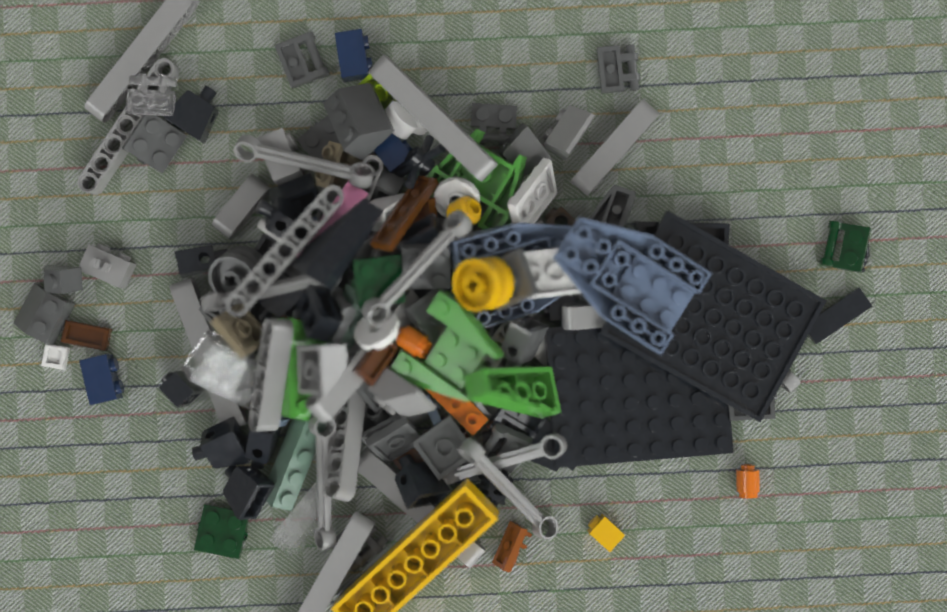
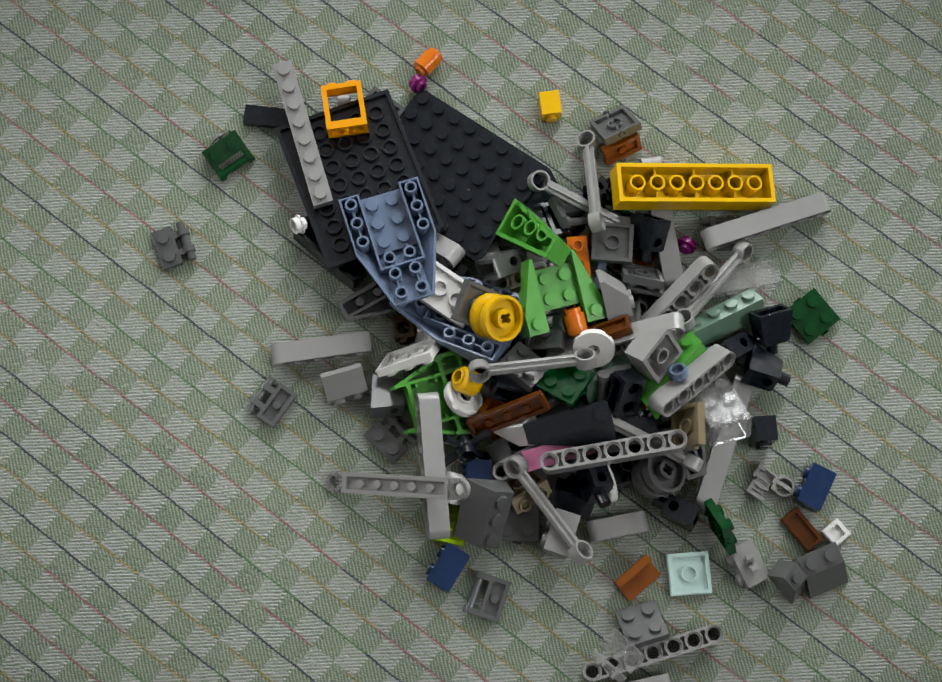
camera: 140 degrees left, 10 degrees down
(147, 274) = (720, 526): none -> dark green plate
(148, 348) = (764, 480): none -> light grey piece
(151, 219) = (688, 573): none -> light aqua tile
(191, 179) = (637, 578): none -> dark orange panel
(195, 113) = (595, 621): black torso -> none
(289, 372) = (678, 372): none -> sand blue plate
(380, 504) = (686, 245): none -> magenta plate
(445, 76) = (398, 485): none -> light grey plate
(531, 562) = (615, 126): none -> dark grey plate
(728, 230) = (298, 224): none -> white plate
(740, 454) = (417, 82): none -> magenta plate
(765, 351) = (347, 126): none -> light orange window
(797, 315) = (302, 134): none -> light grey plate
(822, 124) = (167, 247): none -> dark grey plate

